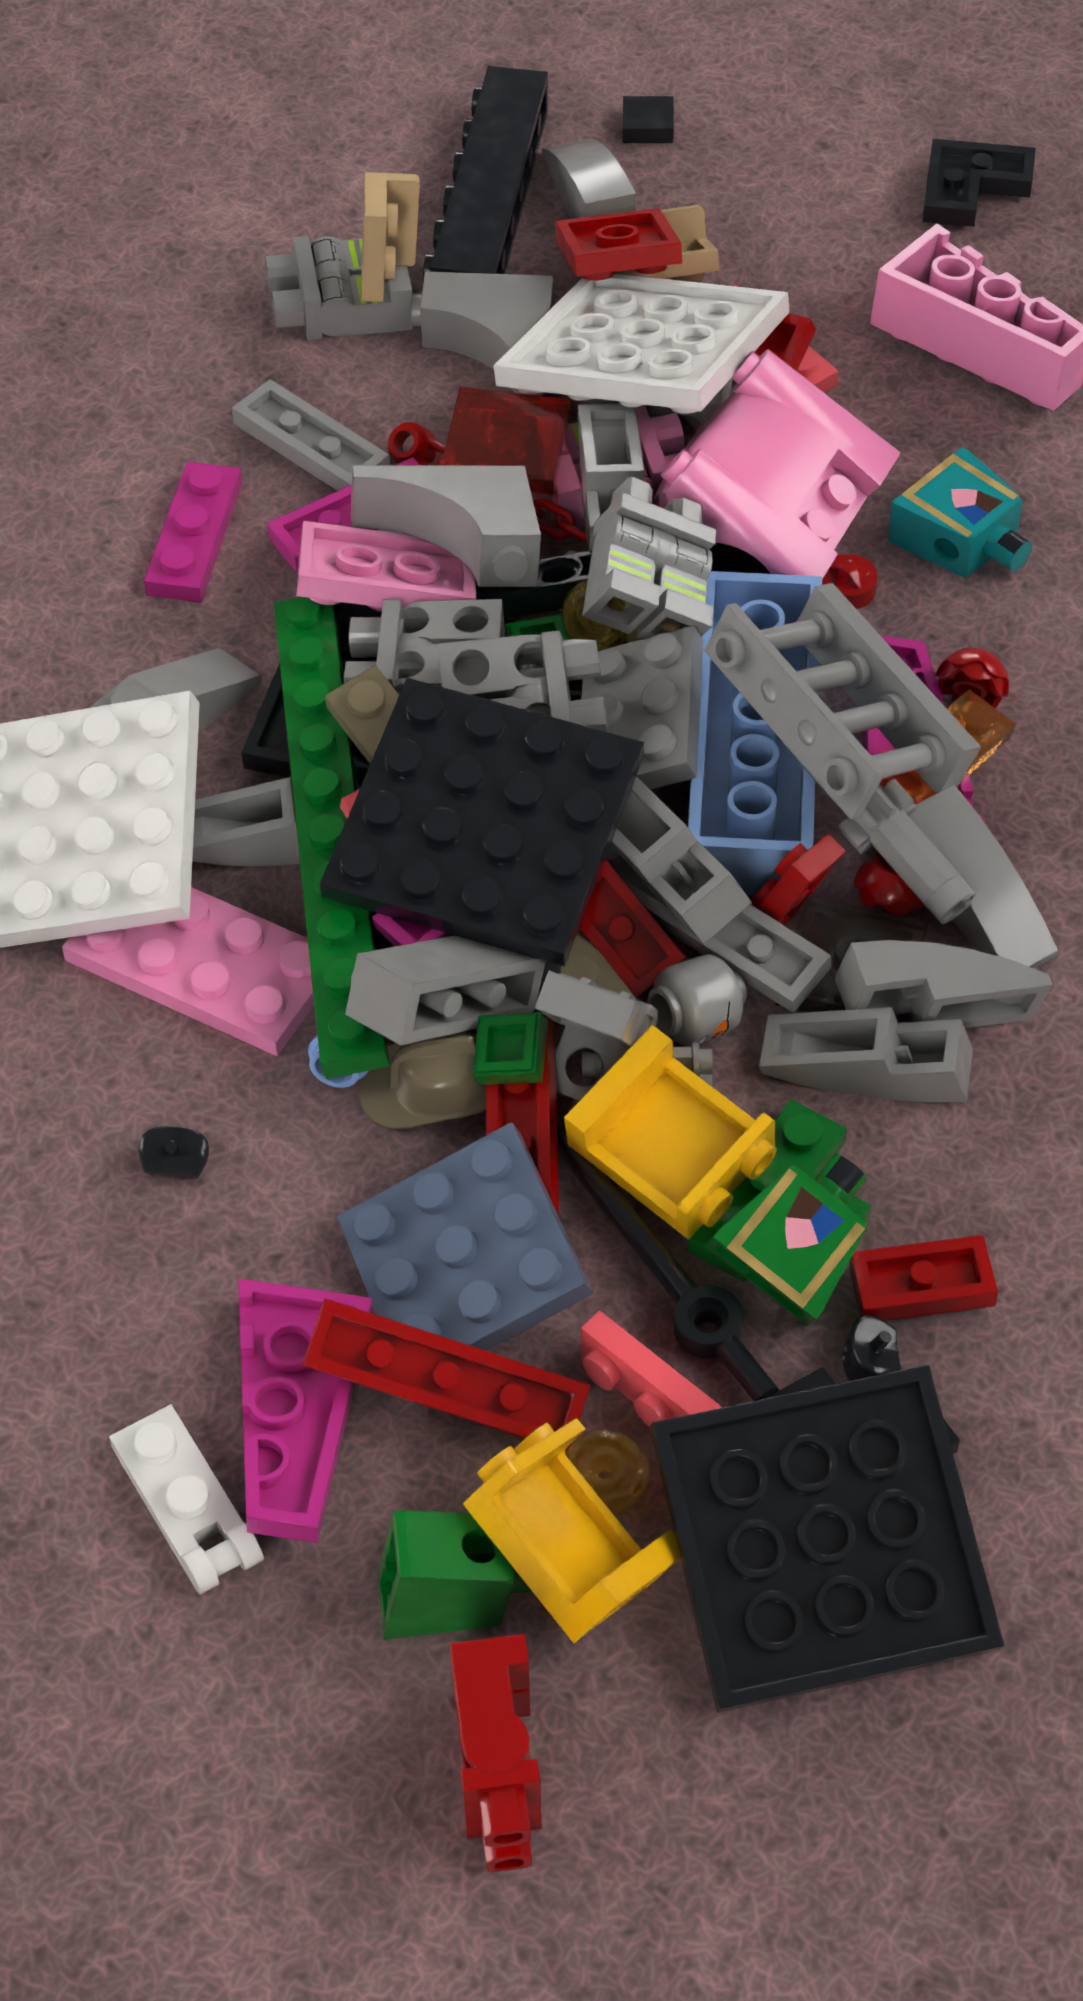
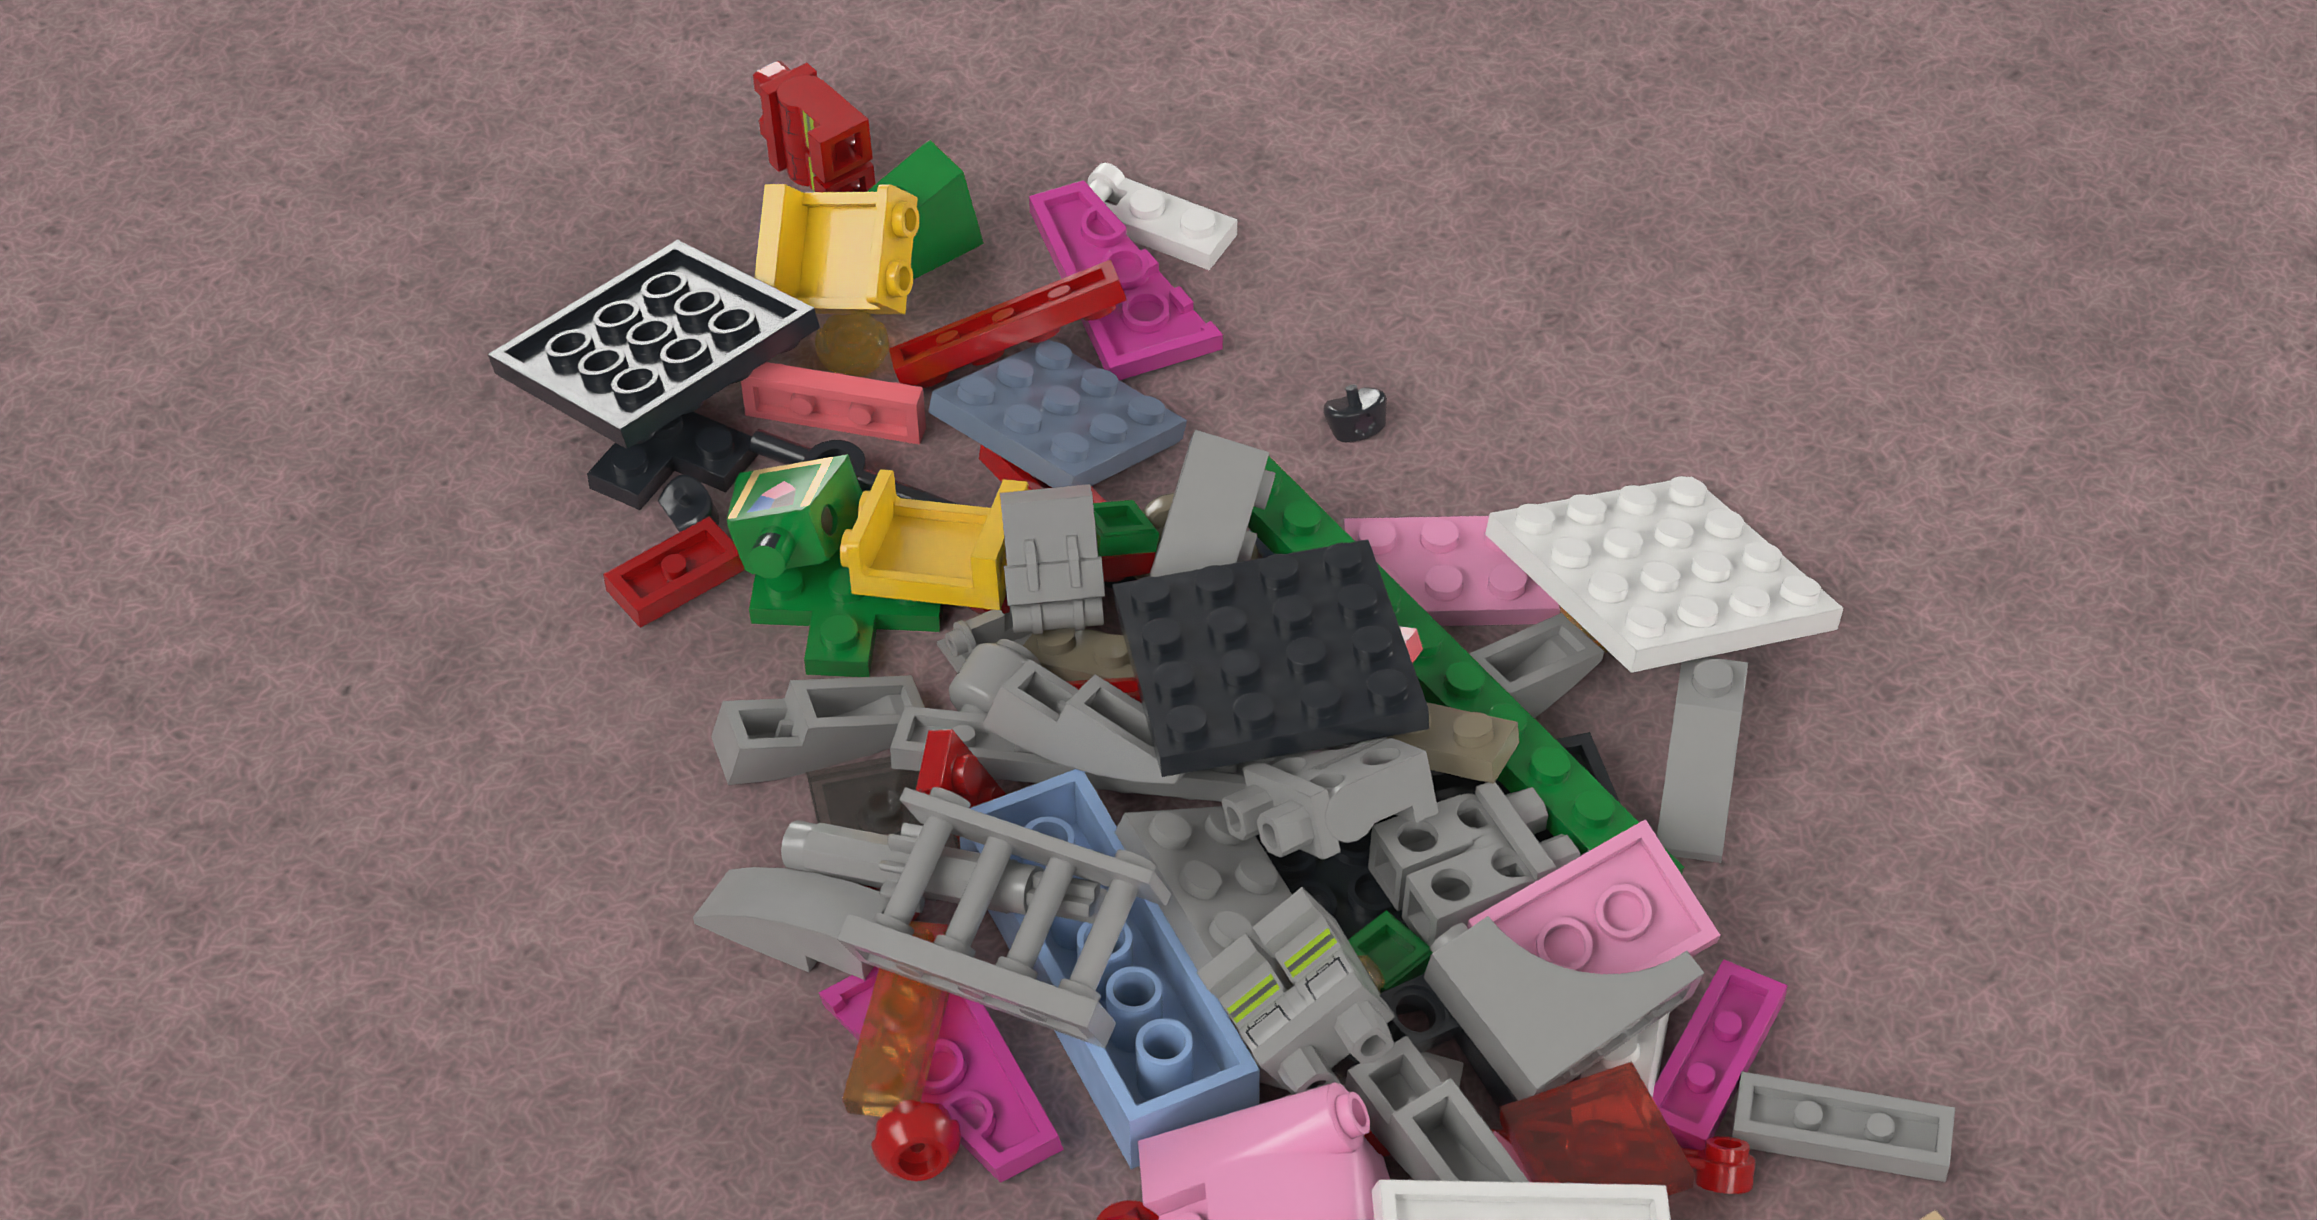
camera: 150 degrees right, 5 degrees down
(193, 532) = (1867, 972): dark pink plate -> none
(940, 982) = (778, 785): light grey slope -> none

